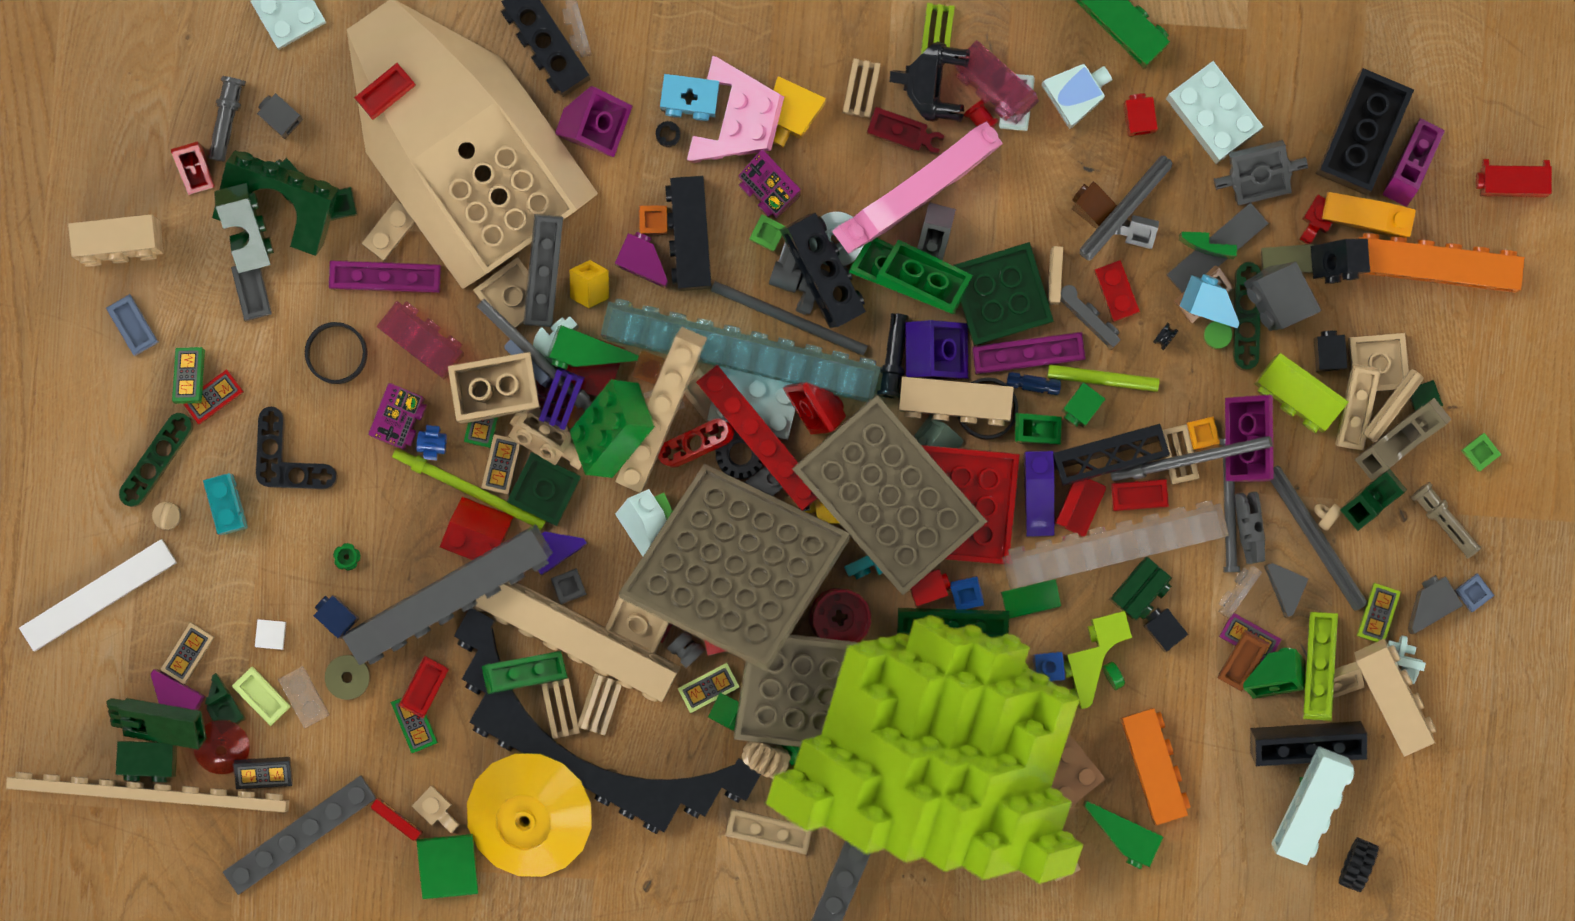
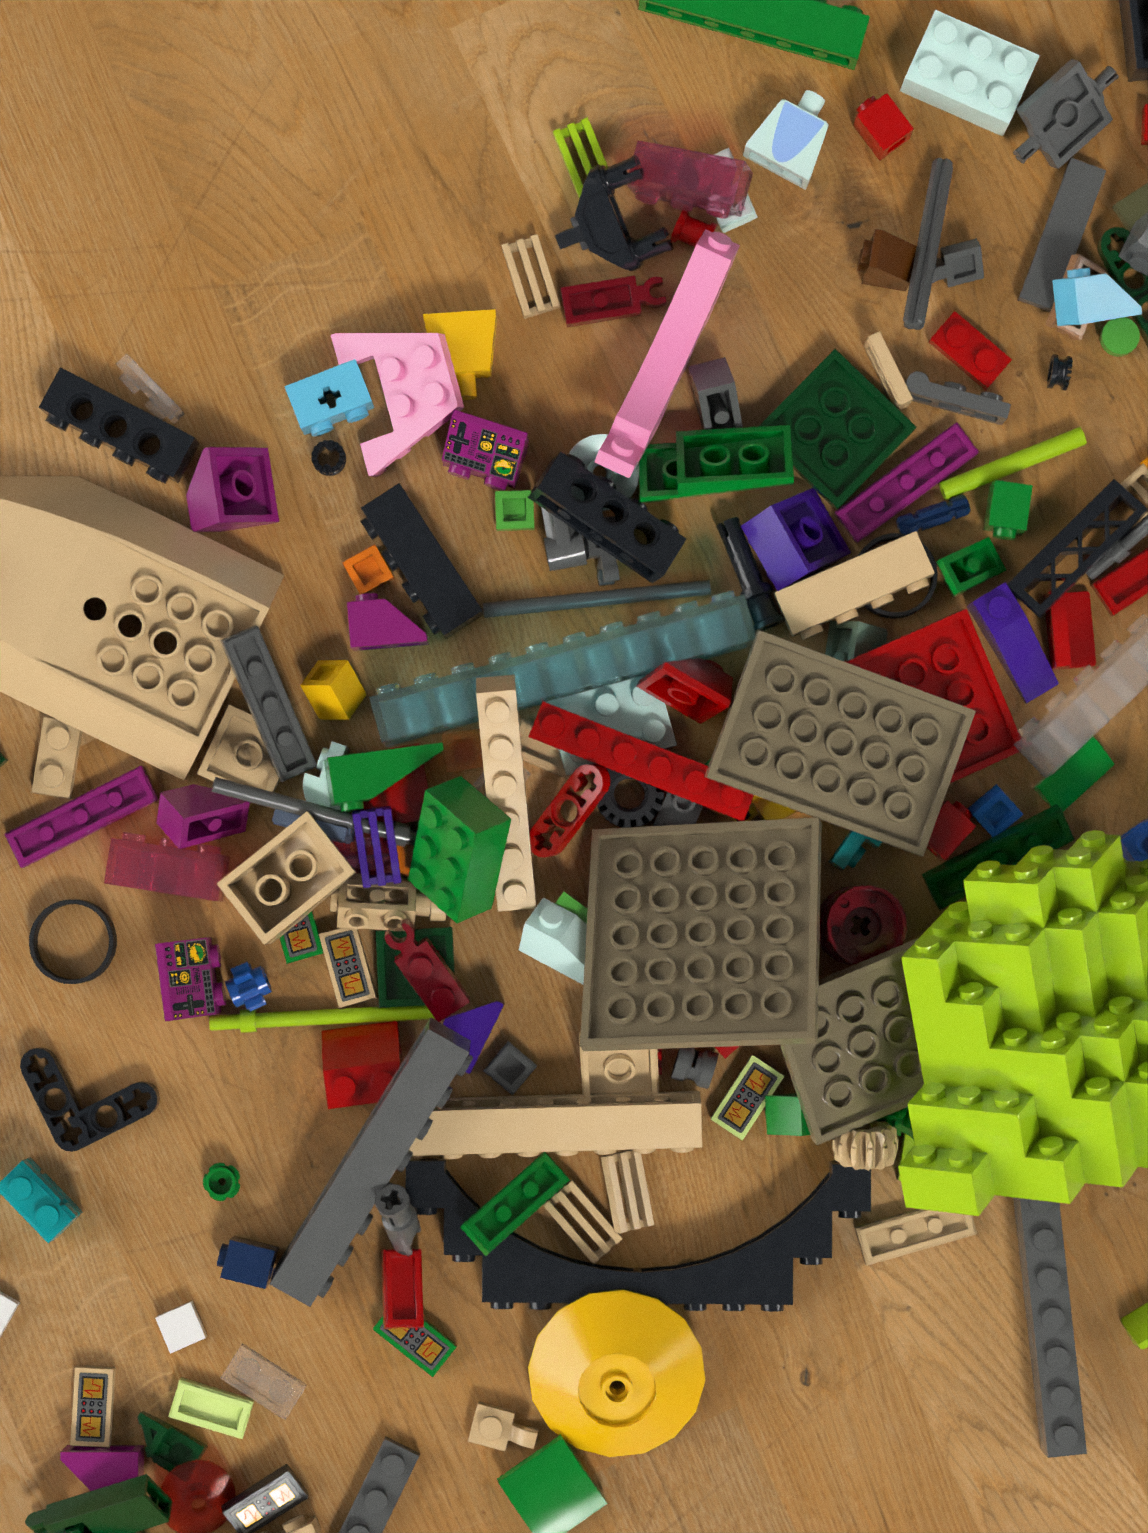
camera: 25 degrees left, 0 degrees up
(335, 682) = (291, 1340): olive piece -> none
(396, 819) = (458, 1468): red tile -> none
(446, 639) = (398, 1217): none -> dark grey piece
(459, 317) = (197, 815): none -> magenta slope
(549, 496) = (428, 973): none -> dark red plate
(1200, 242) = (1043, 236): green slope -> none

